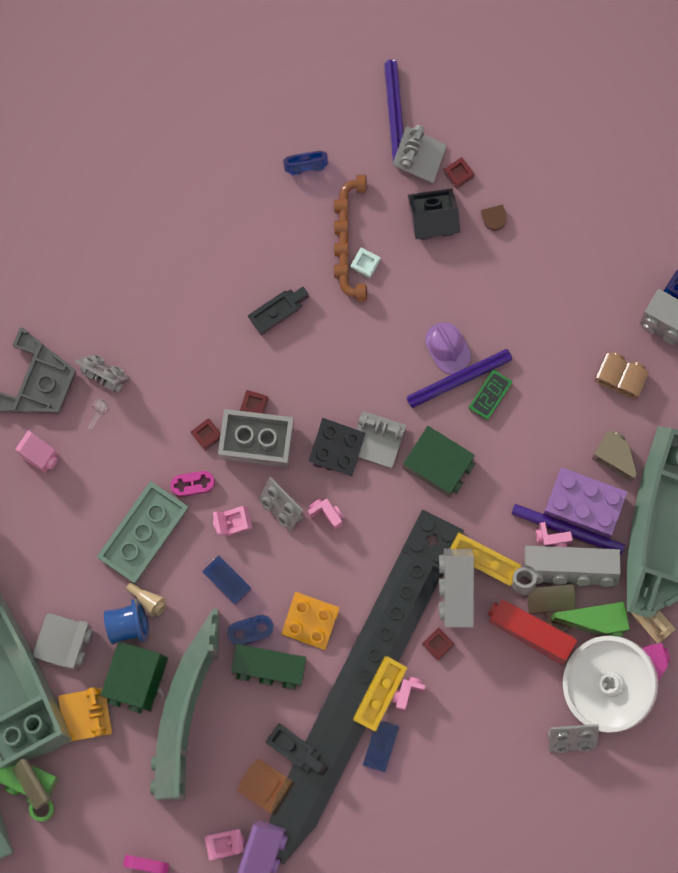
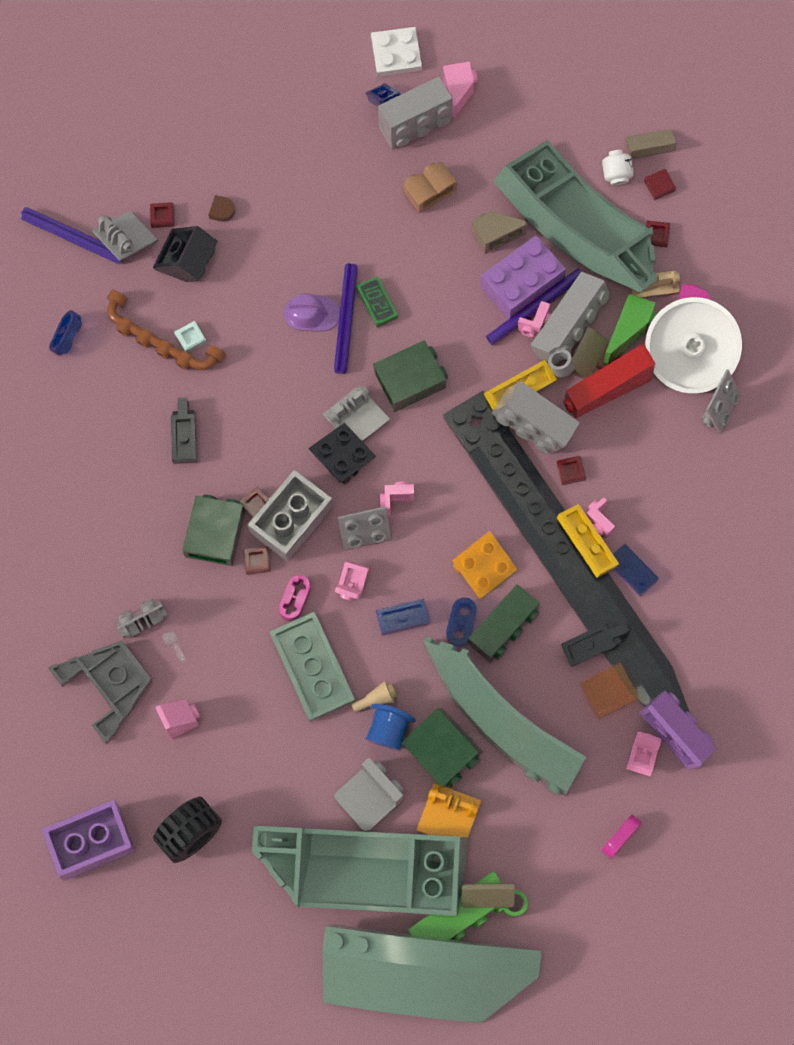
camera: 60 degrees left, 5 degrees down
(210, 384) = (214, 530): none -> brick

